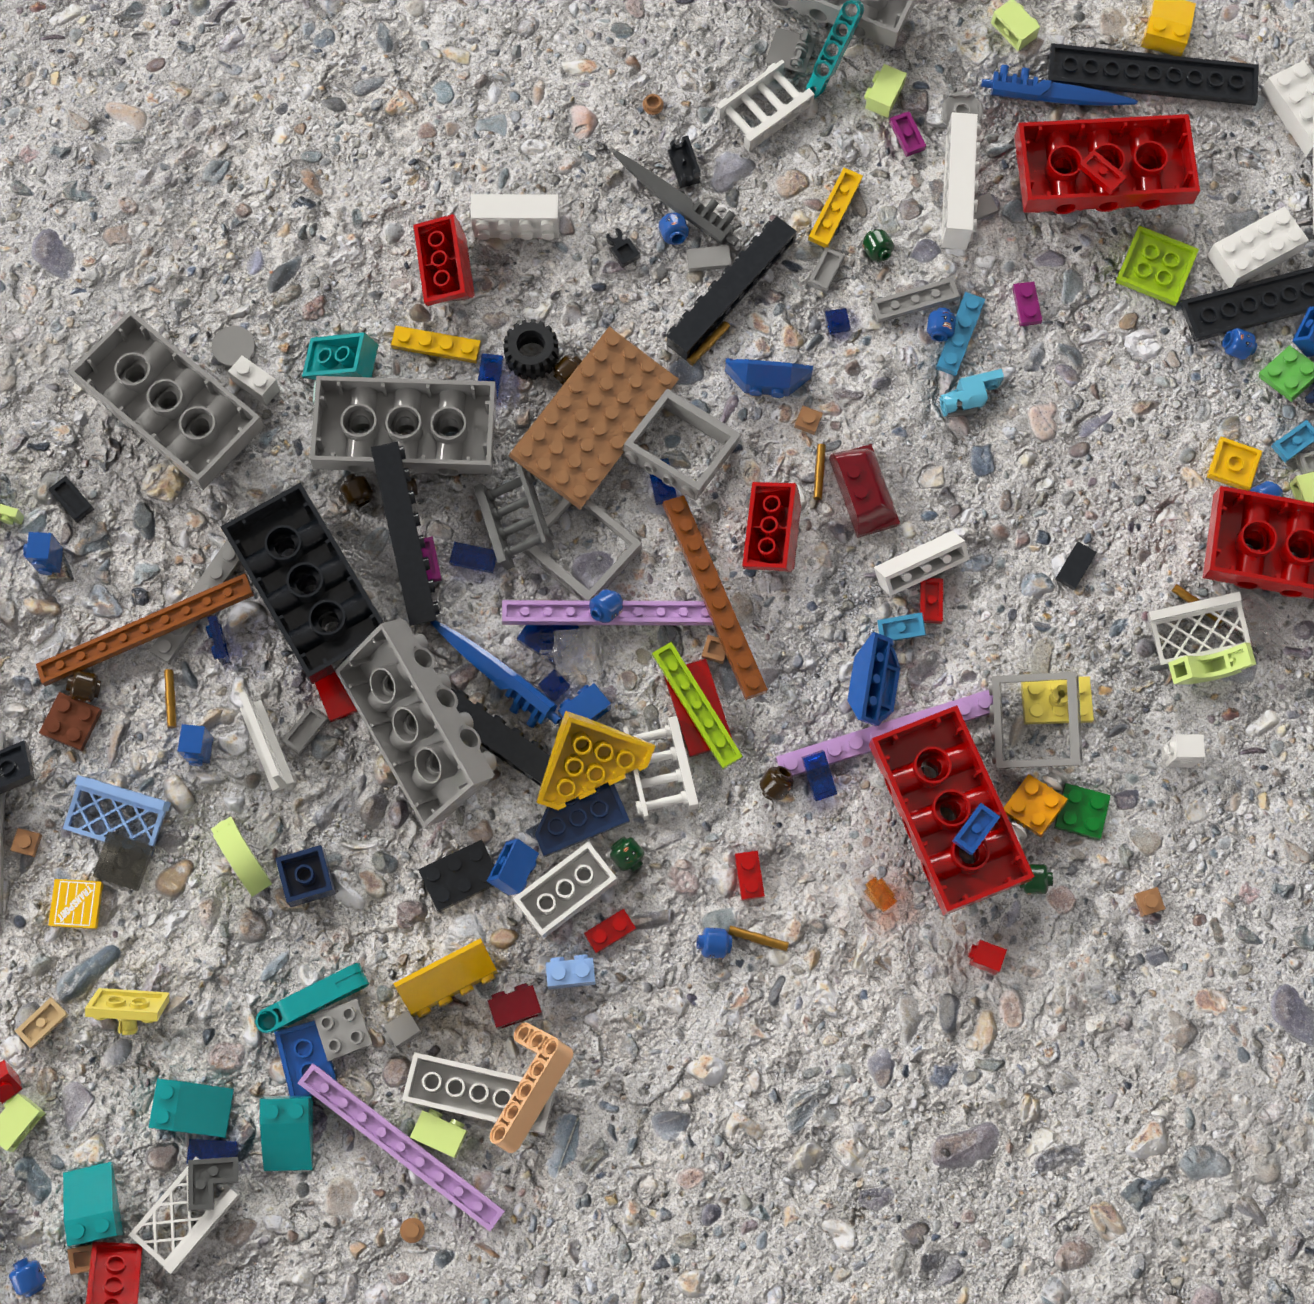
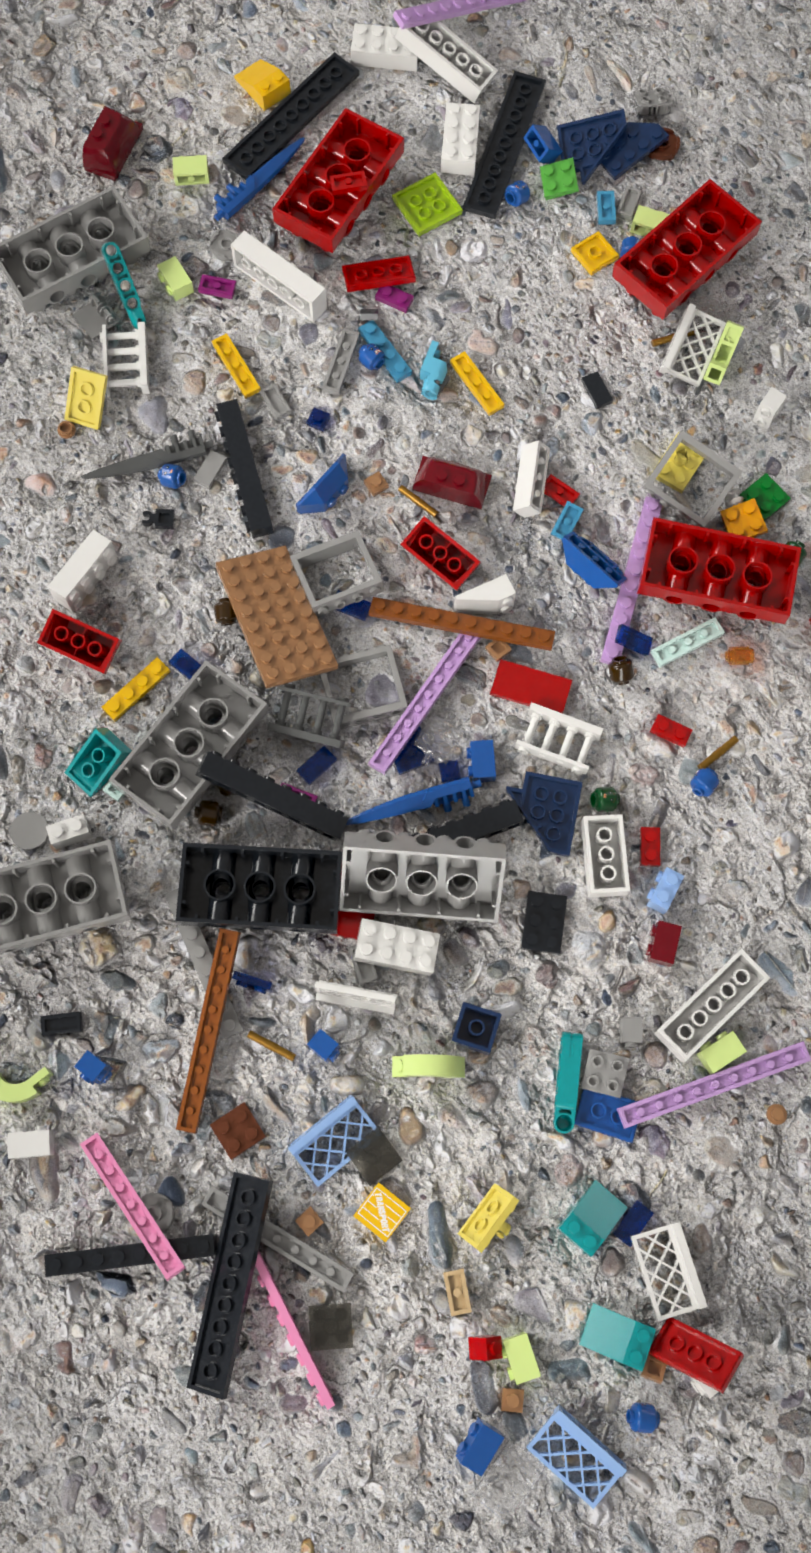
camera: 55 degrees left, 0 degrees up
(83, 686) = (219, 1103): dark brown head -> none
(204, 1175) = (652, 1237): dark grey plate -> none
(287, 1133) = (653, 1158): teal slope -> none
(337, 748) = (396, 947): none -> white brick
(446, 978) = (617, 975): yellow slope -> none
(513, 867) = (565, 880): blue brick -> none
(531, 333) = (189, 612): black tyre -> none
(535, 1087) = (733, 960): light nougat beam -> none
(588, 757) = (522, 779): yellow slope -> none
(606, 606) = (423, 695): blue head -> none
(684, 163) = (127, 437): black hinge -> none
(693, 97) = (85, 397): none -> light yellow plate
(697, 705) = (532, 685): lime plate -> none
(708, 343) = (272, 510): pearl gold piece -> none
(759, 603) = (487, 598): none -> white slope
(857, 832) = (687, 642): none -> light aqua plate
(878, 245) = (284, 357): dark green head -> none
(976, 829) = (748, 560): blue plate -> none
(987, 292) = (369, 314): none -> tile
(991, 443) = (477, 383): none -> yellow plate
(1040, 271) = (378, 273): none -> red tile

